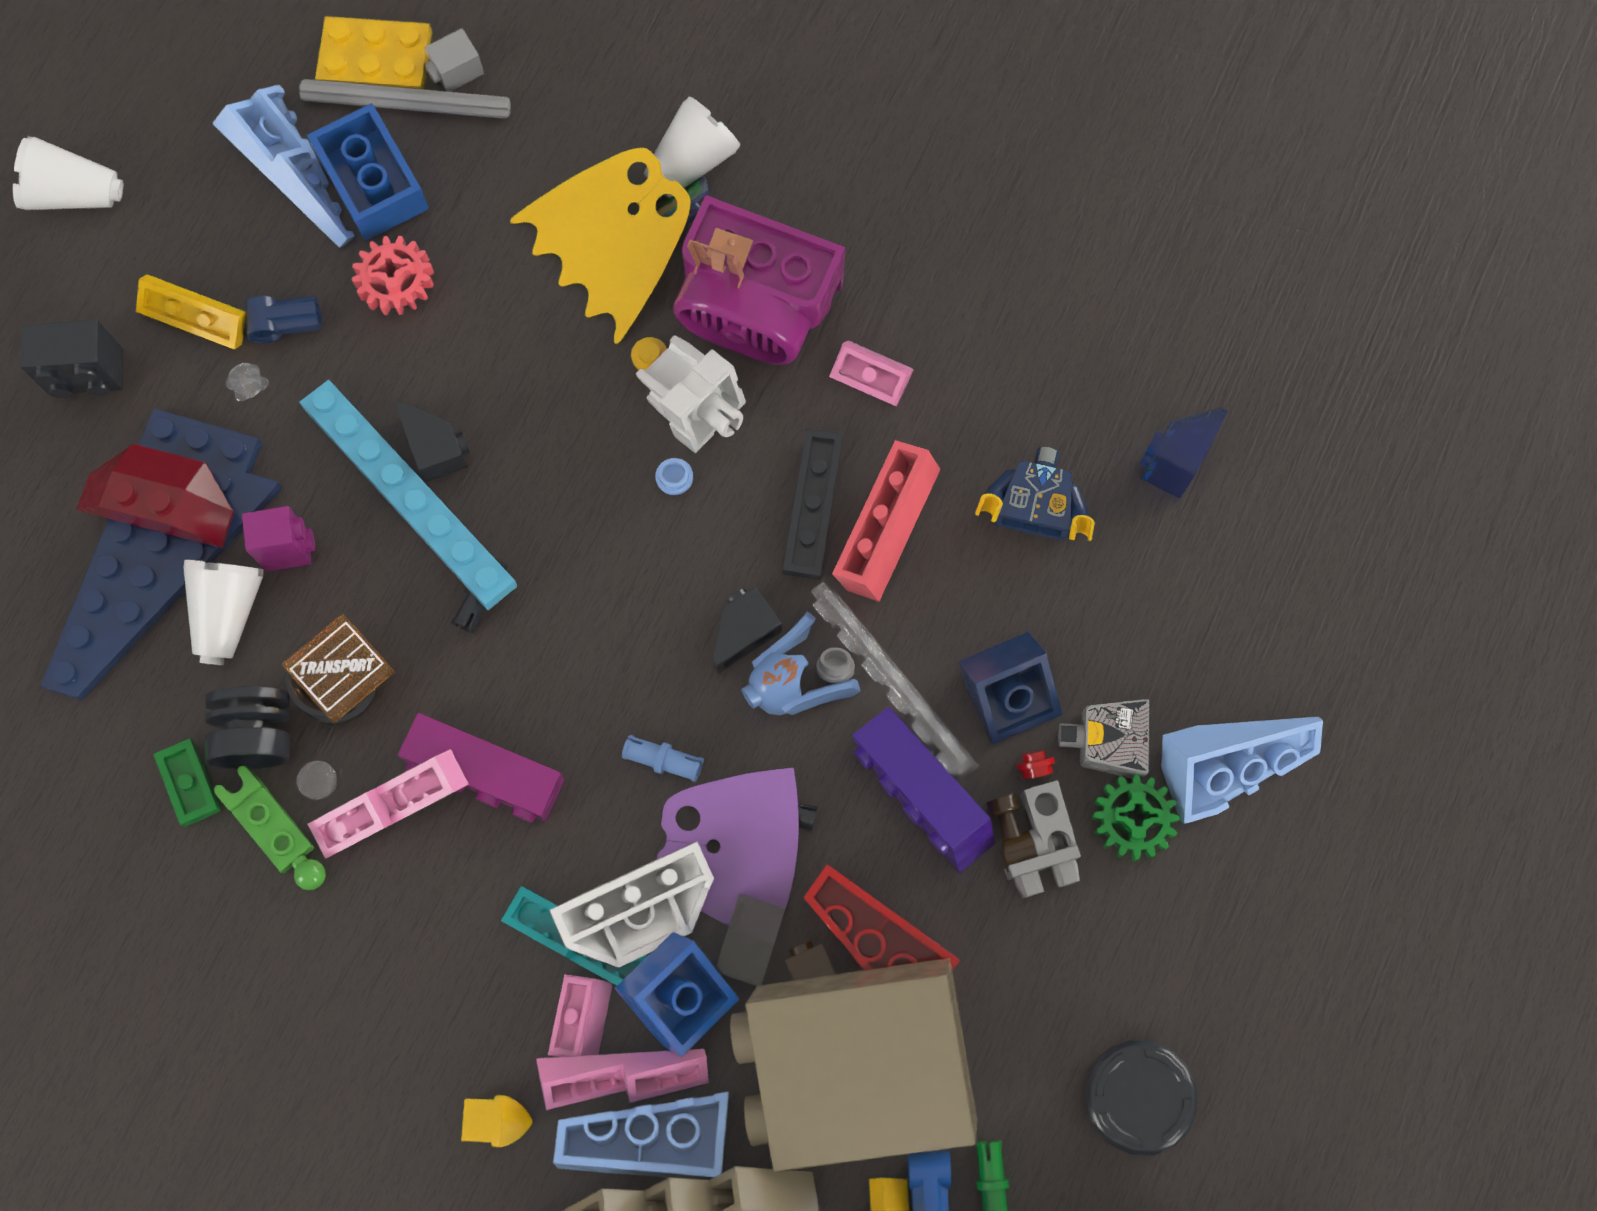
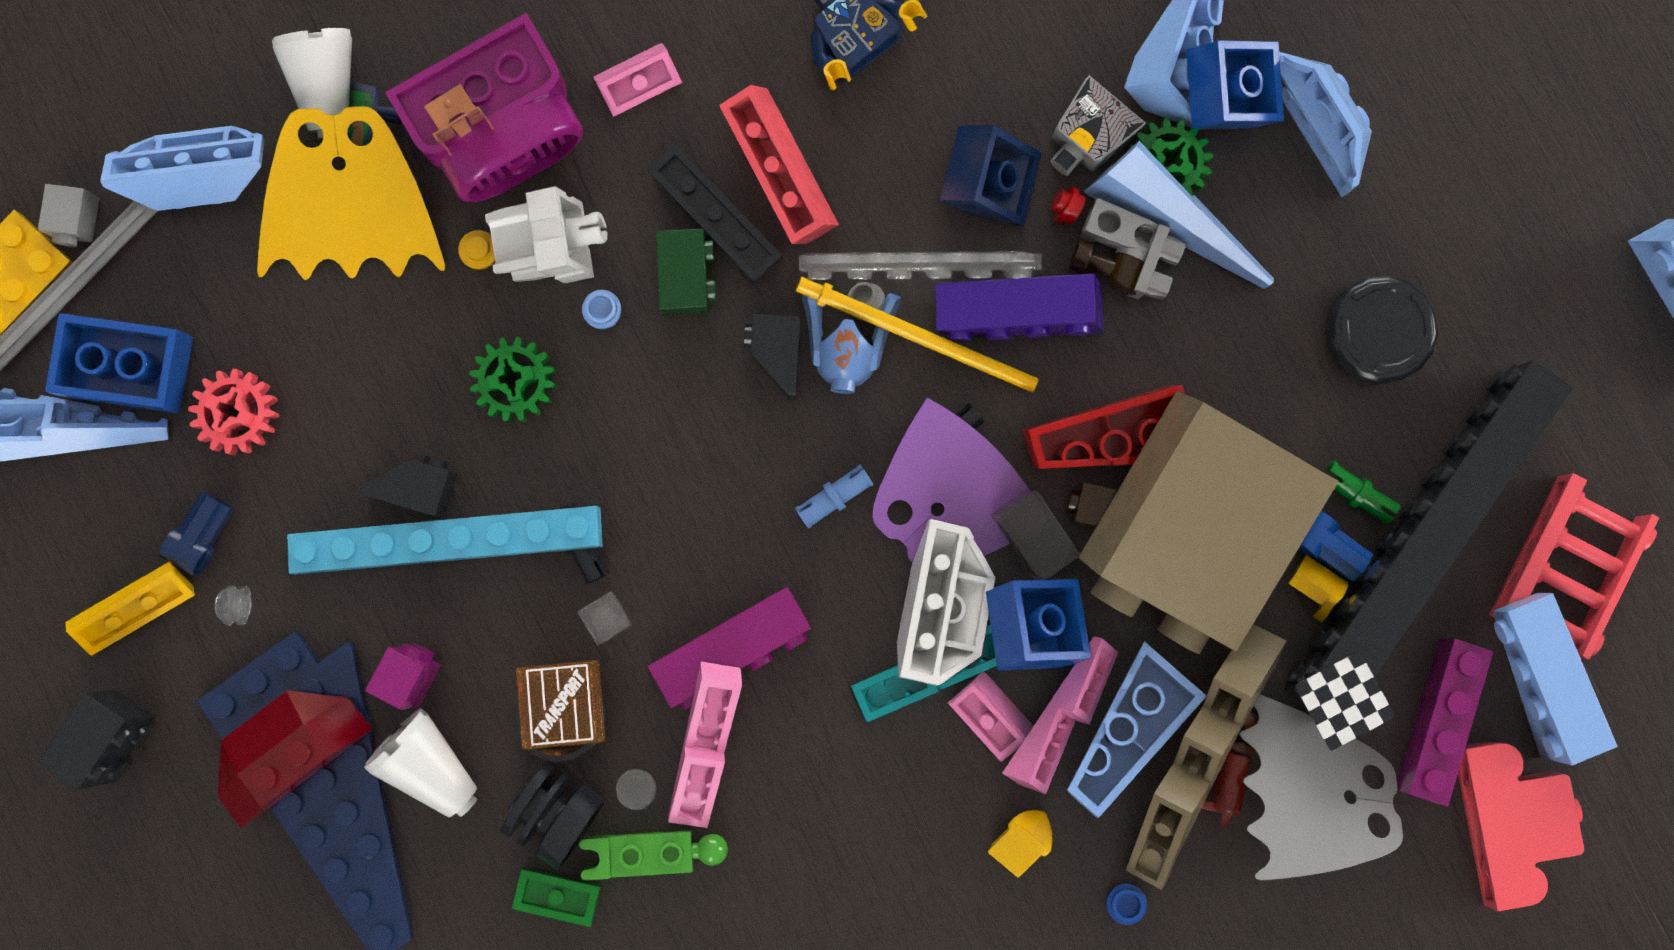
camera: 50 degrees left, 10 degrees up
(435, 656) = (604, 618): none -> clear plate
(547, 110) = (185, 167): none -> light blue wedge
(568, 435) = (529, 375): none -> green gear
(749, 514) = (684, 272): none -> dark green brick
(810, 627) = (825, 295): none -> yellow bar
(1097, 819) = (1149, 190): none -> light blue wedge
(1236, 819) = (1235, 84): none -> blue brick
(1276, 913) = (1327, 118): none -> light blue wedge

